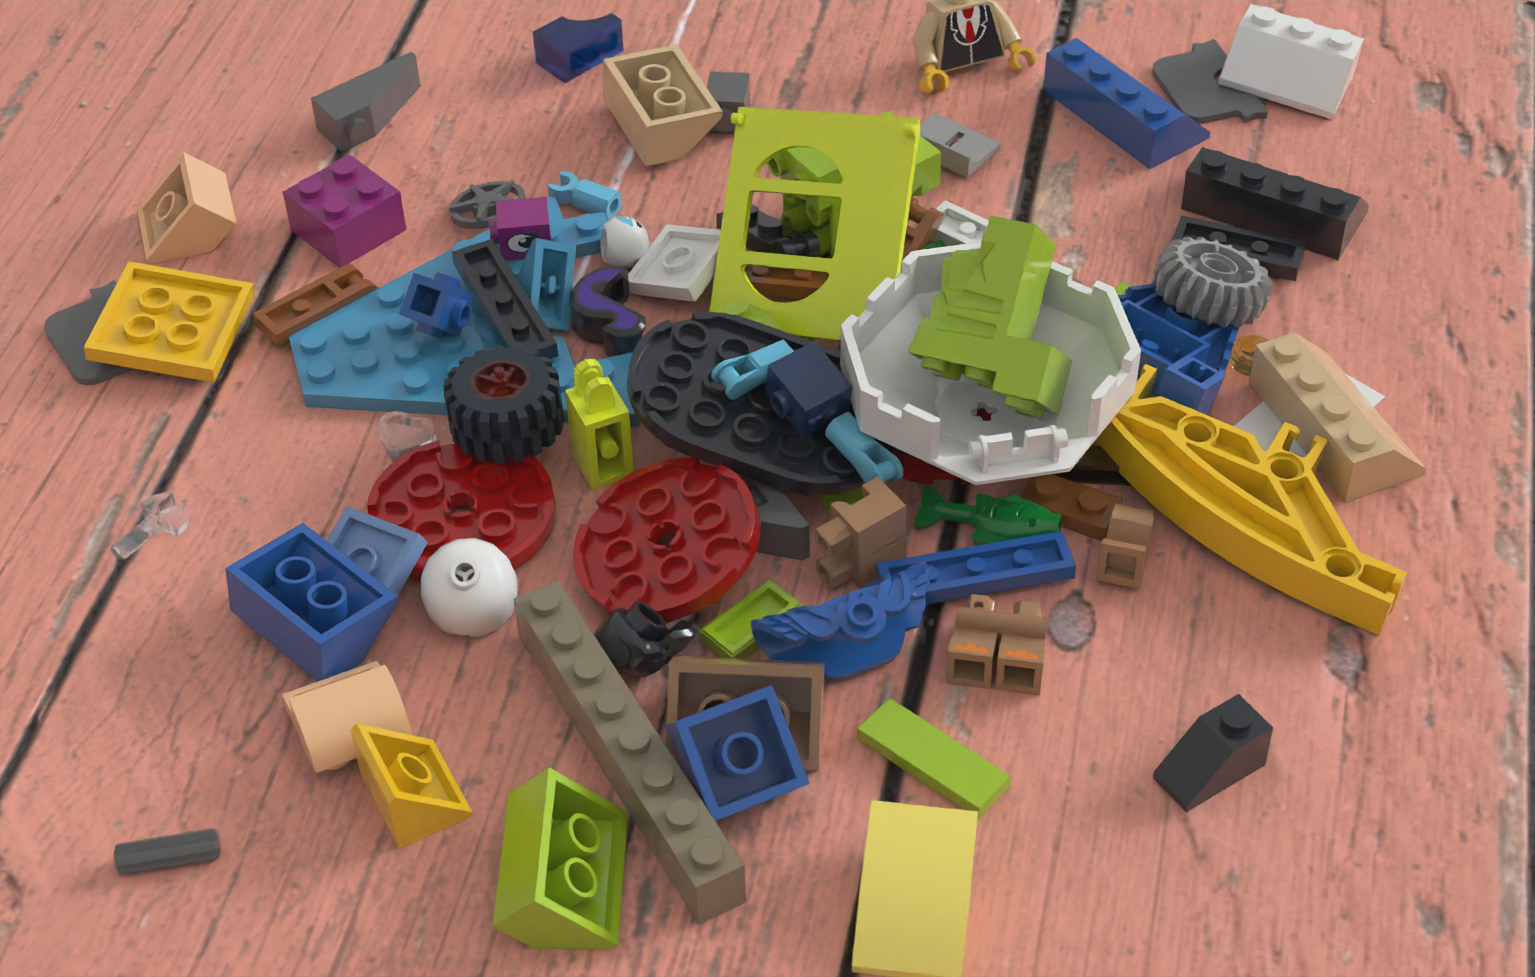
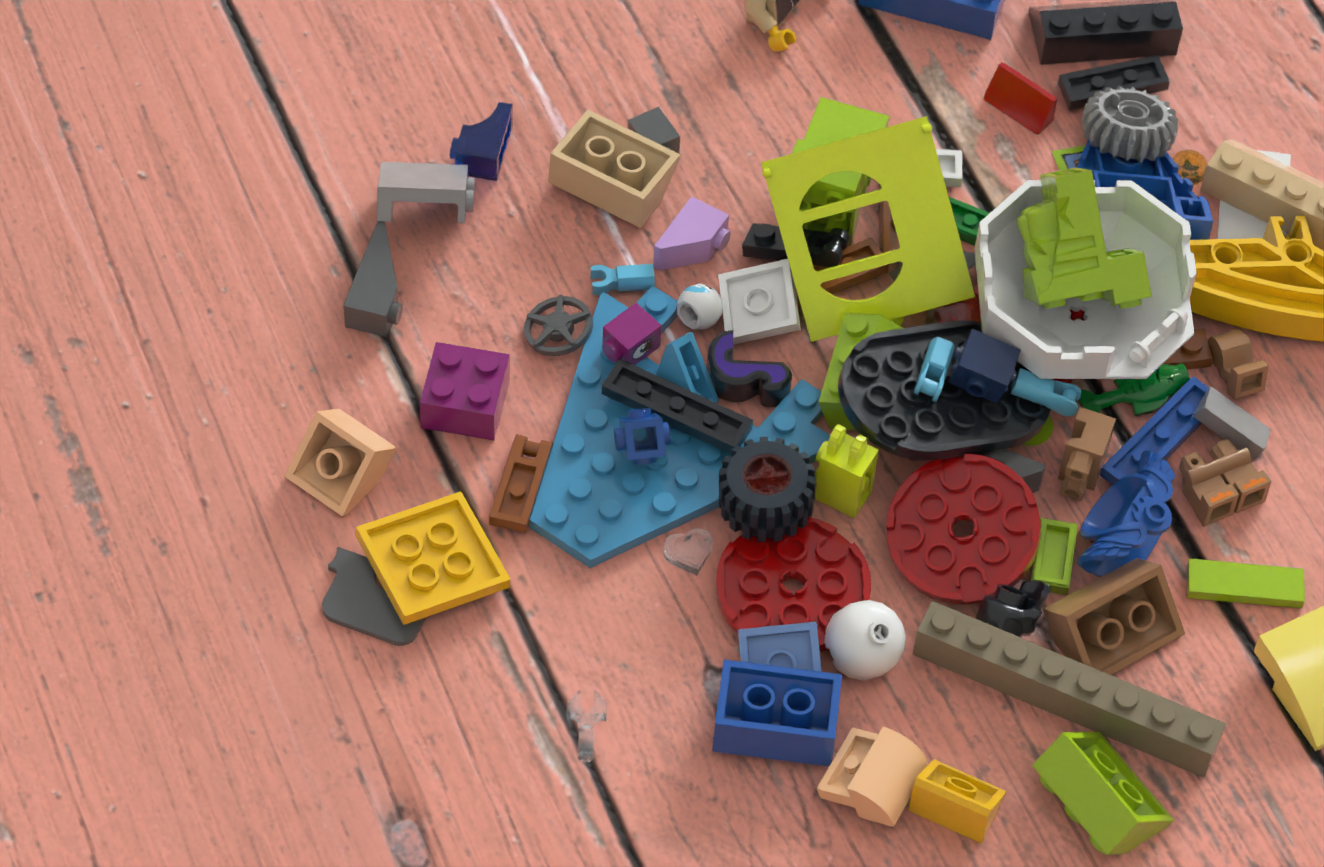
camera: 40 degrees left, 10 degrees up
(500, 56) = (424, 184): none -> light grey panel
(677, 188) = (692, 236): none -> lavender slope
(738, 753) = (1153, 649): blue brick -> none
(967, 153) = (861, 88): light grey piece -> none
(1064, 593) = (1232, 422): none -> light grey slope
(1123, 222) = (1021, 99): none -> red slope

